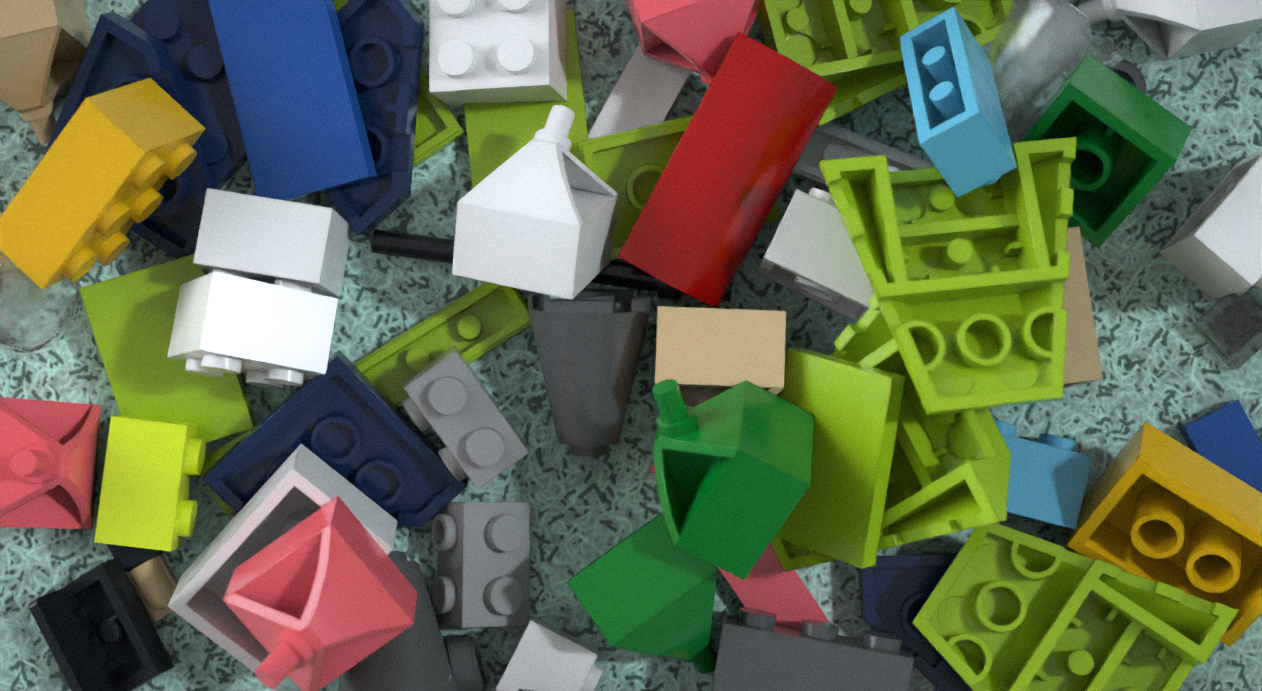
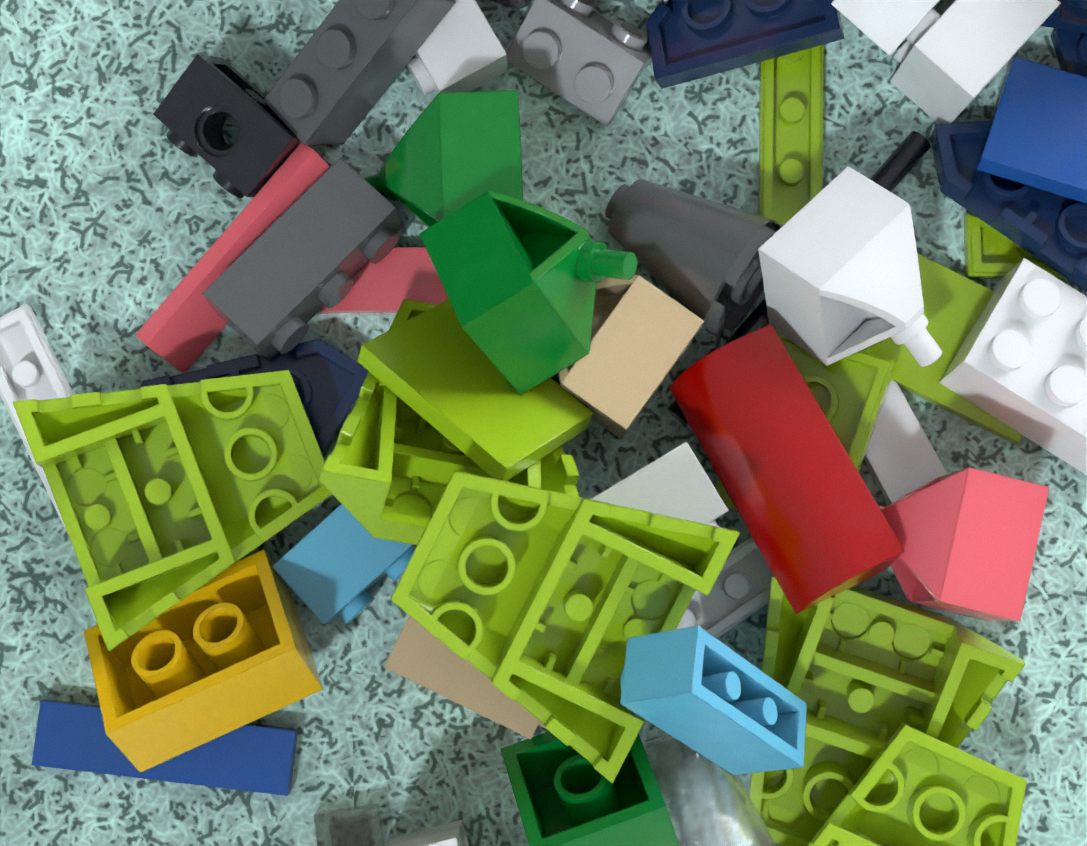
camera: 120 degrees right, 0 degrees up
(465, 417) = (715, 110): light grey brick -> none

